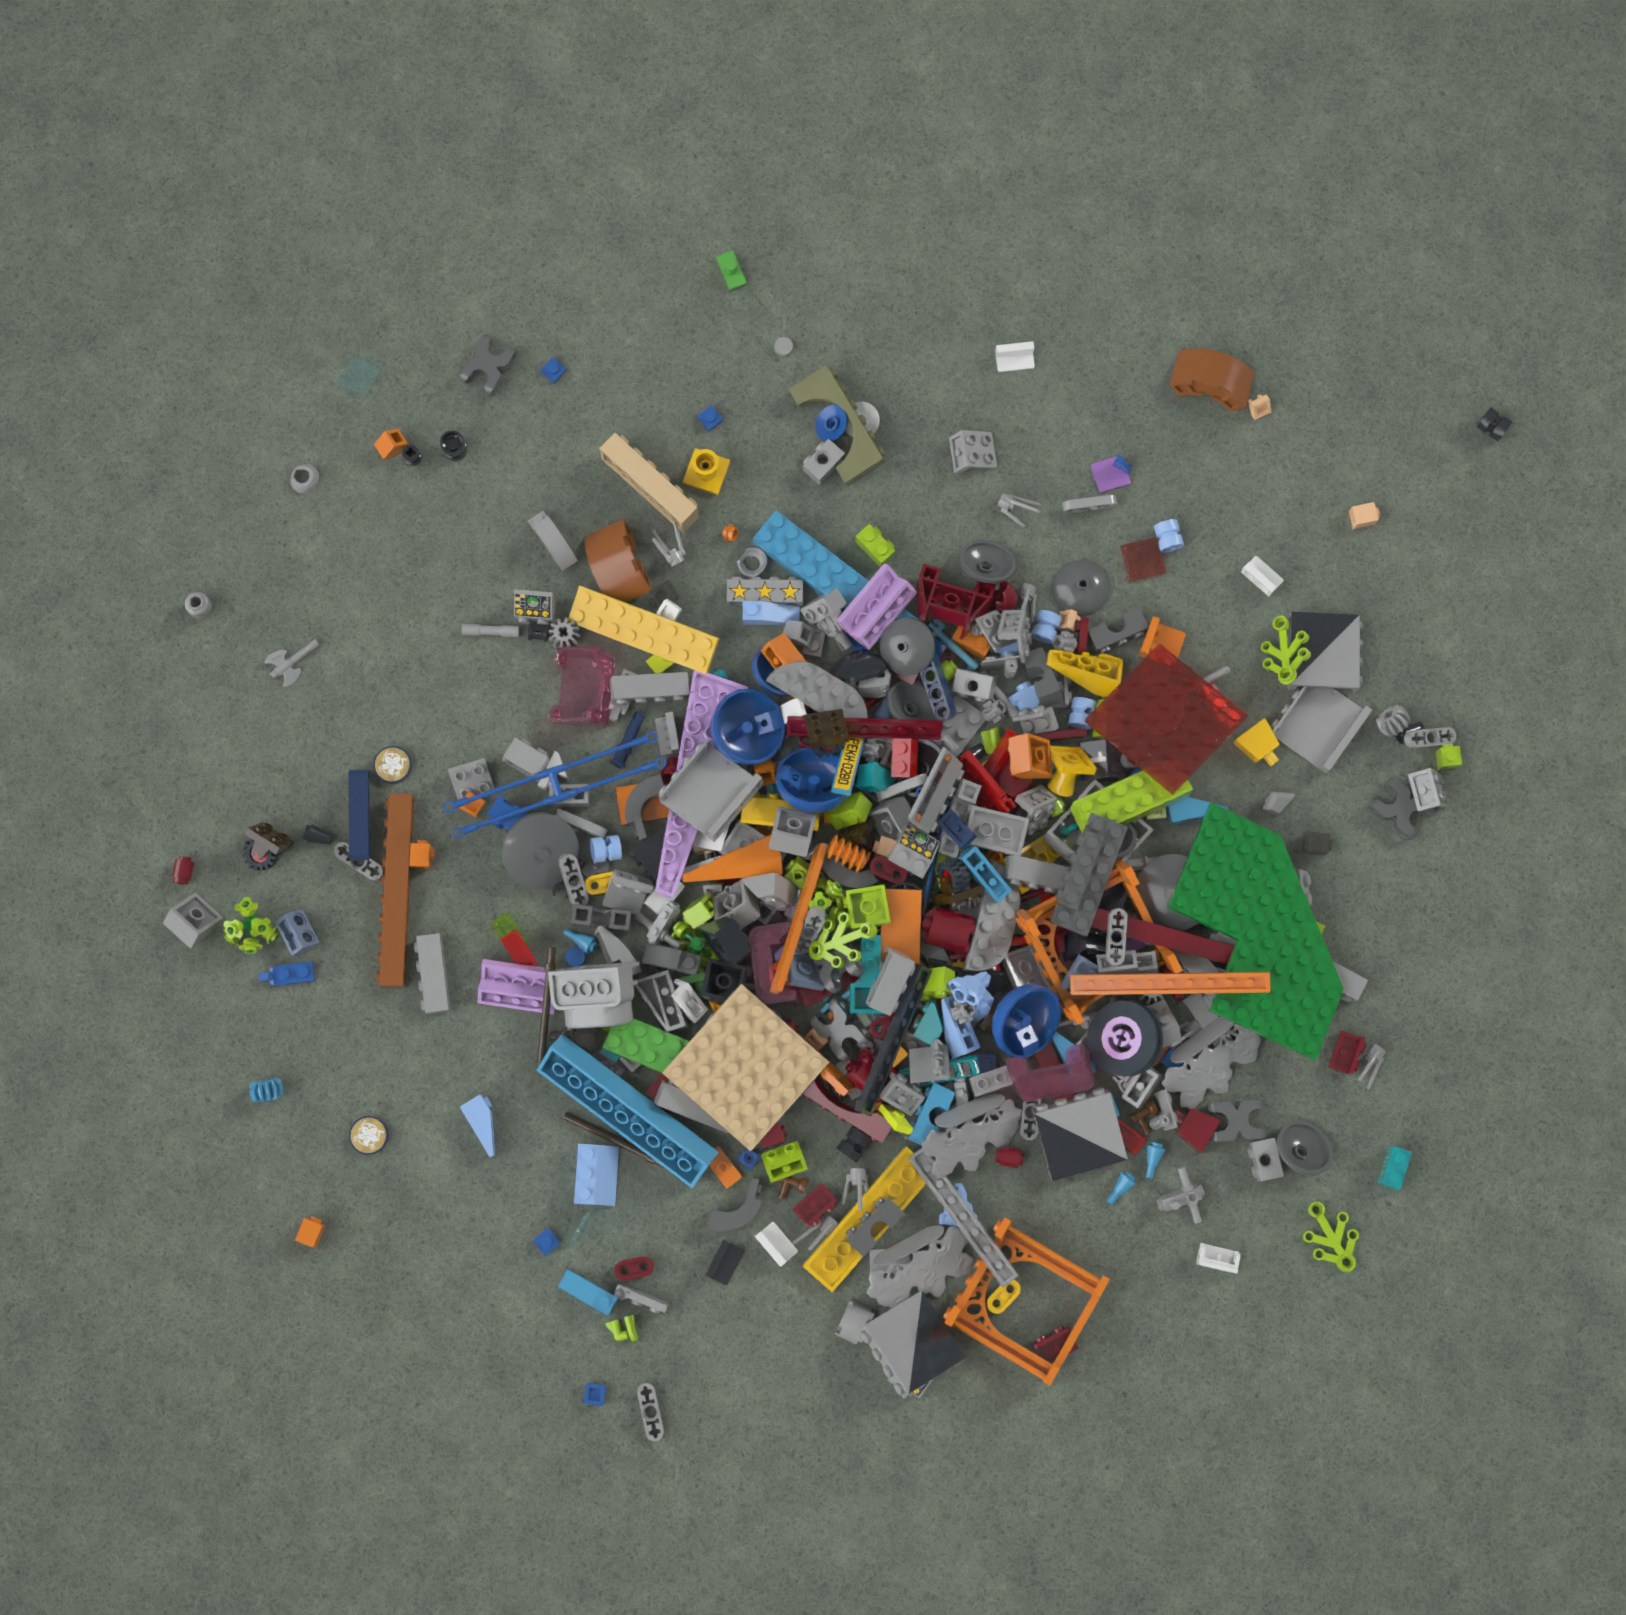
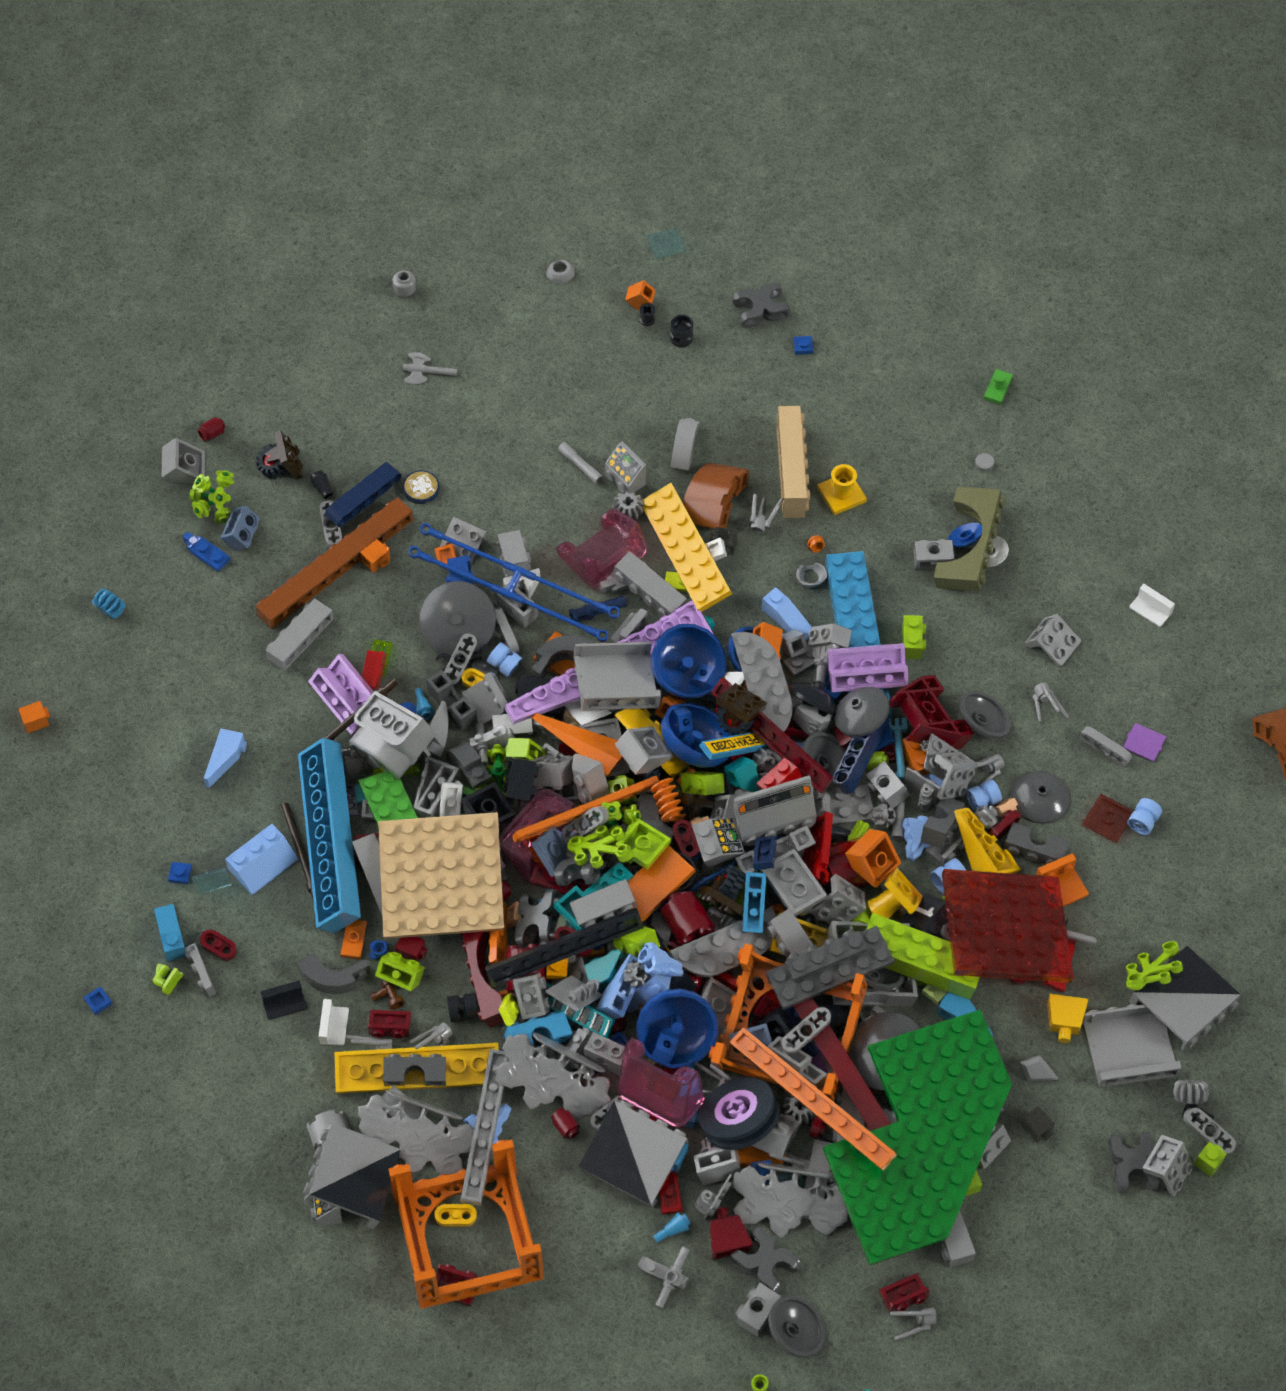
camera: 45 degrees right, 20 degrees down
(368, 1135) = (141, 696): tile -> none
(538, 632) = (610, 489): black bush -> none
(658, 1415) = (108, 1059): light grey beam -> none
(710, 418) = (881, 463): blue plate -> none
(771, 590) = (808, 603): light grey brick -> none
(1004, 598) = (974, 749): dark red hair -> none
(1037, 720) = (909, 846): light grey bracket -> none
(1062, 735) = (919, 878): dark red tile -> none
(1120, 464) = (1158, 733): blue tile -> none
(1123, 1184) = (632, 1223): dark azure cone -> none
(1139, 1116) = (692, 1190): reddish brown piece -> none
(1218, 1258) = (644, 1345): white hinge -> none
(1262, 575) = (1191, 907): white panel -> none

